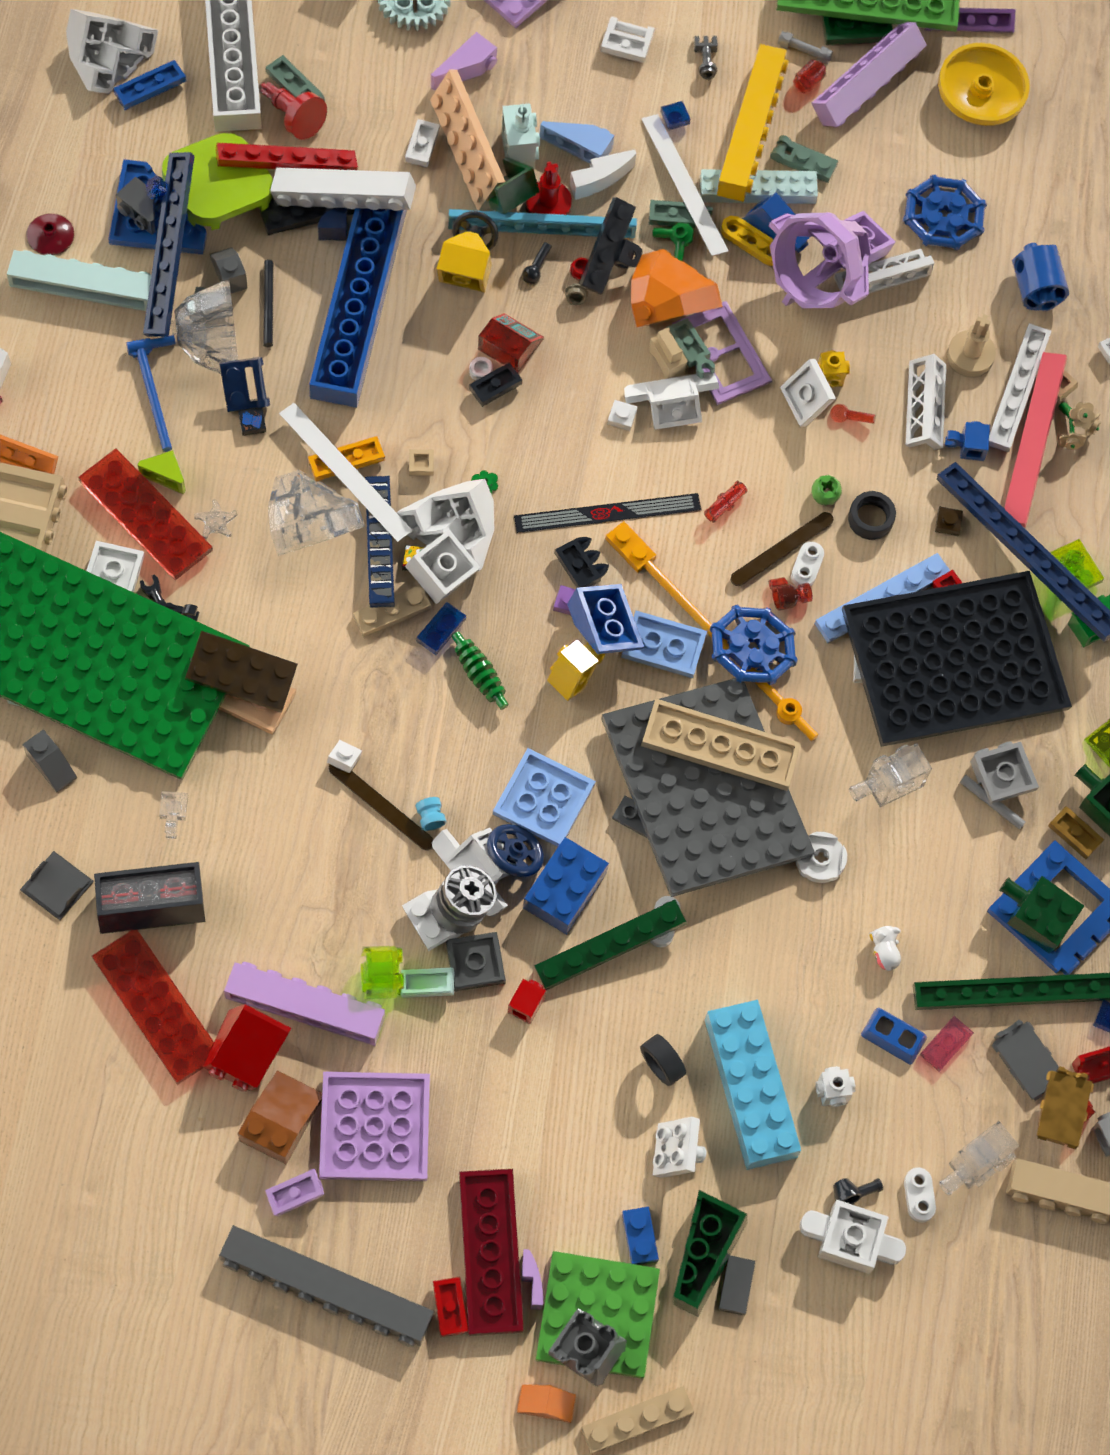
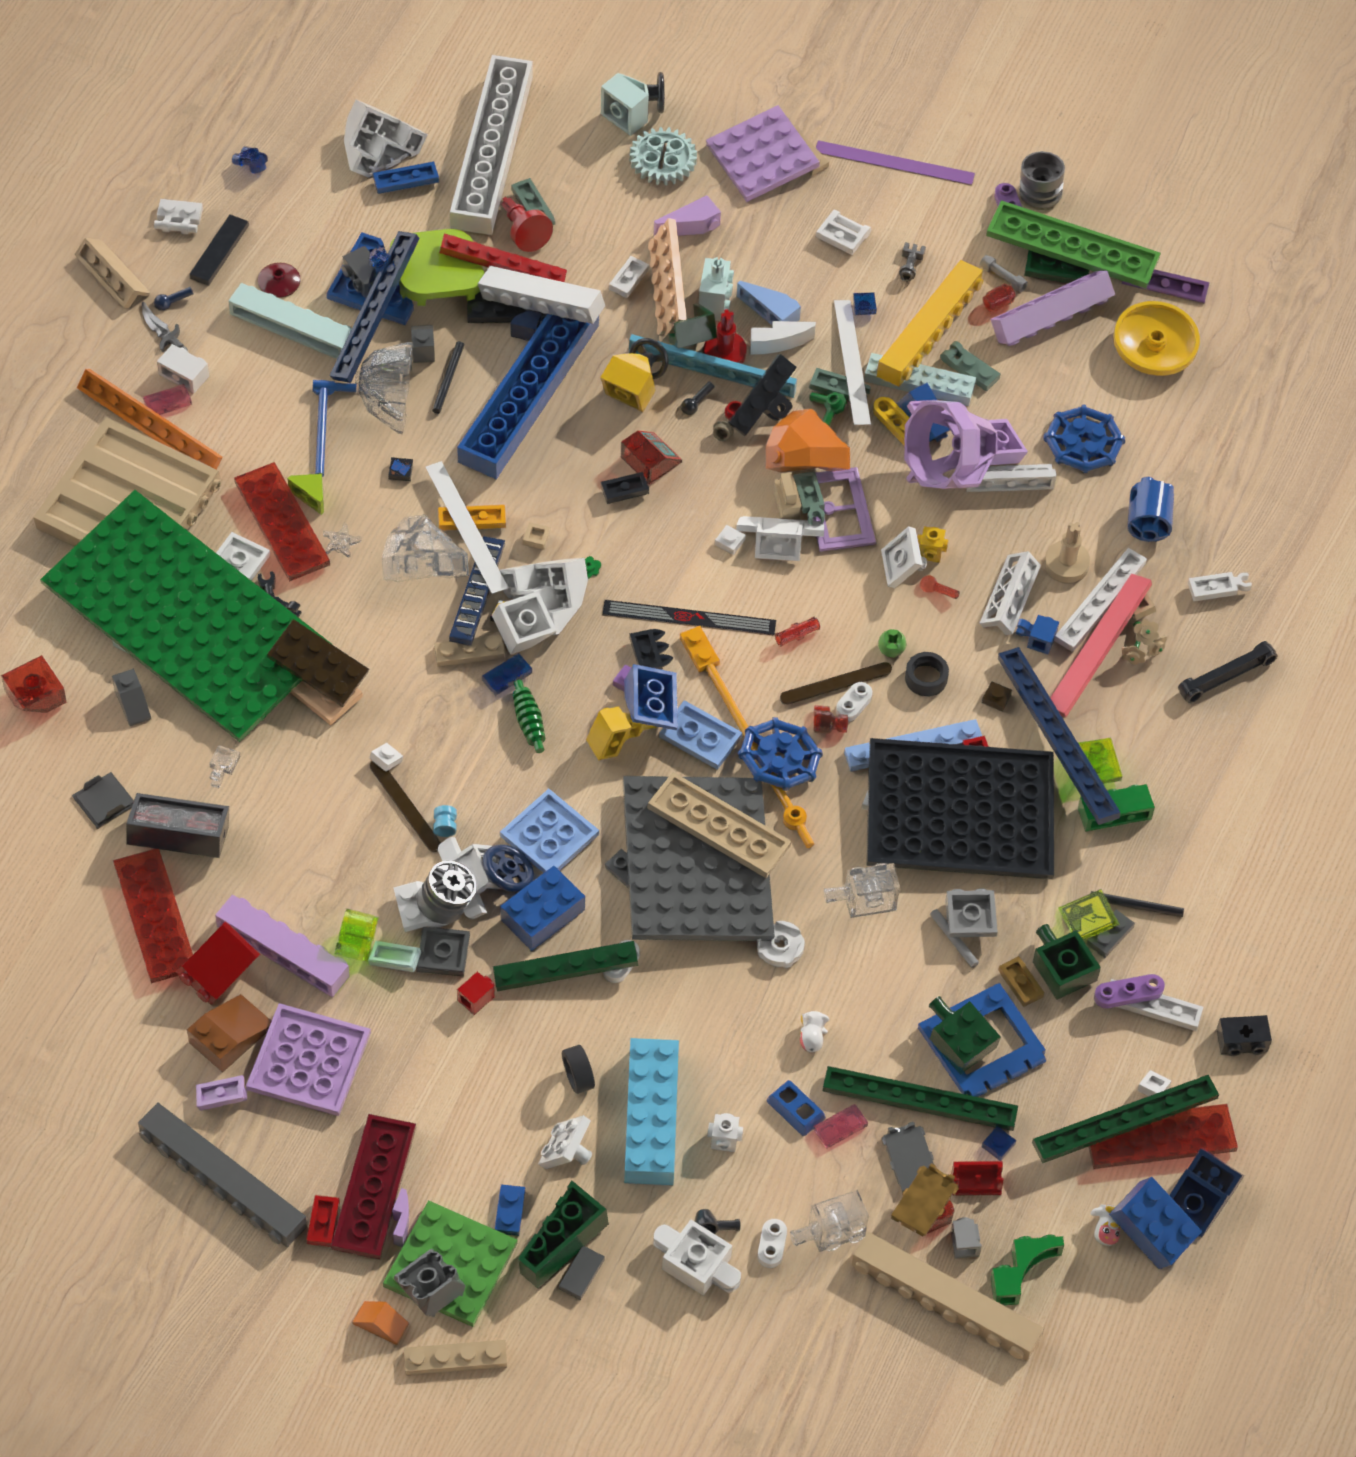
camera: 20 degrees right, 10 degrees down
(236, 385) = (395, 435): dark blue plate -> none
(480, 367) = (616, 470): white tile -> none

